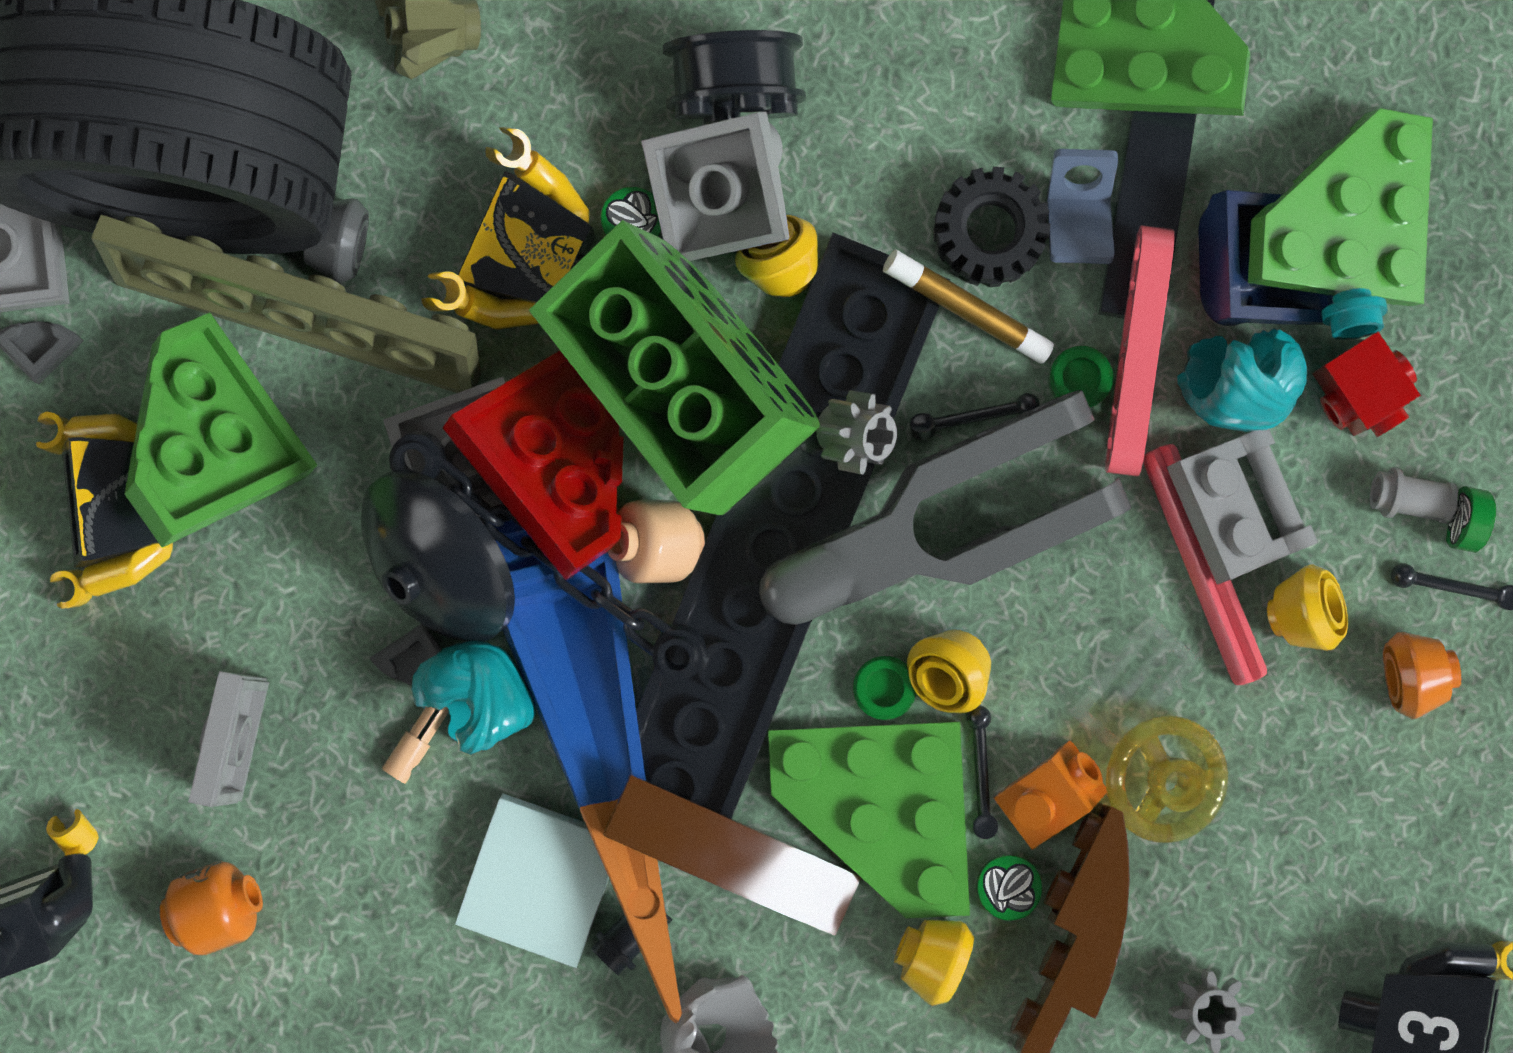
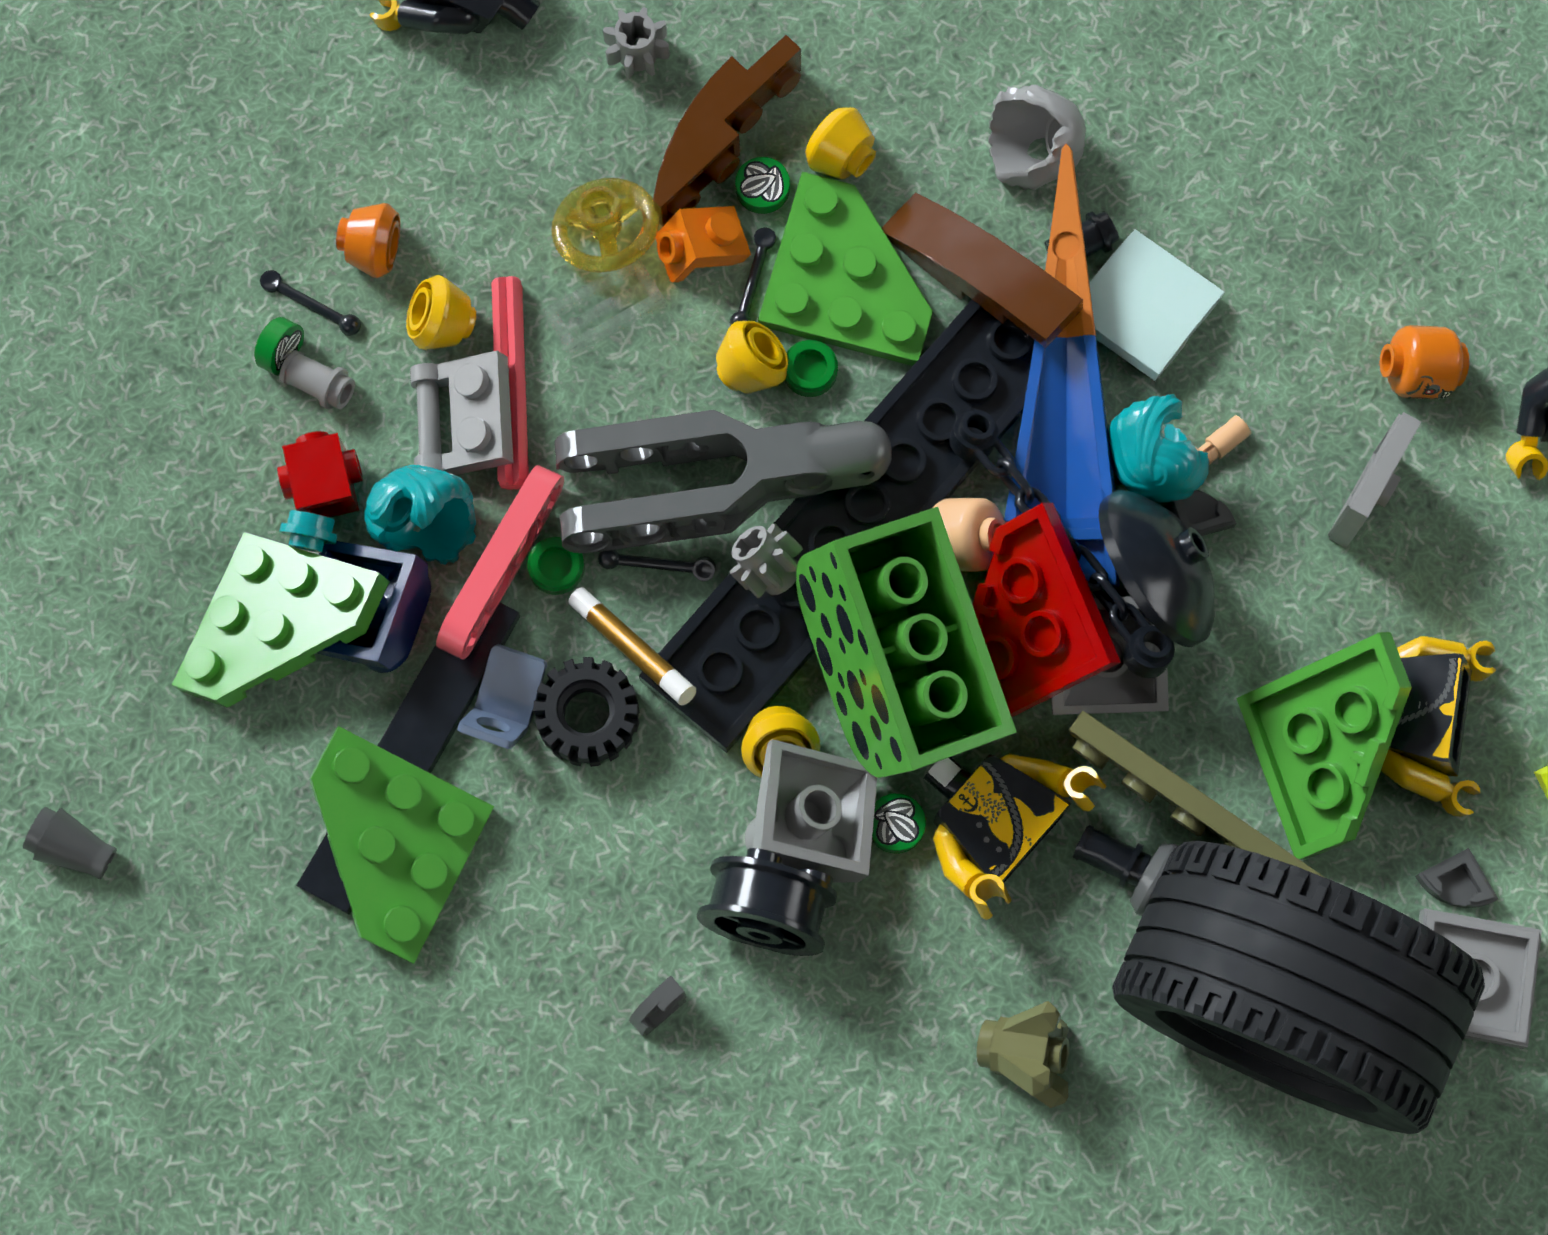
camera: 160 degrees left, 10 degrees down
(398, 254) = (1112, 856): none -> black pin

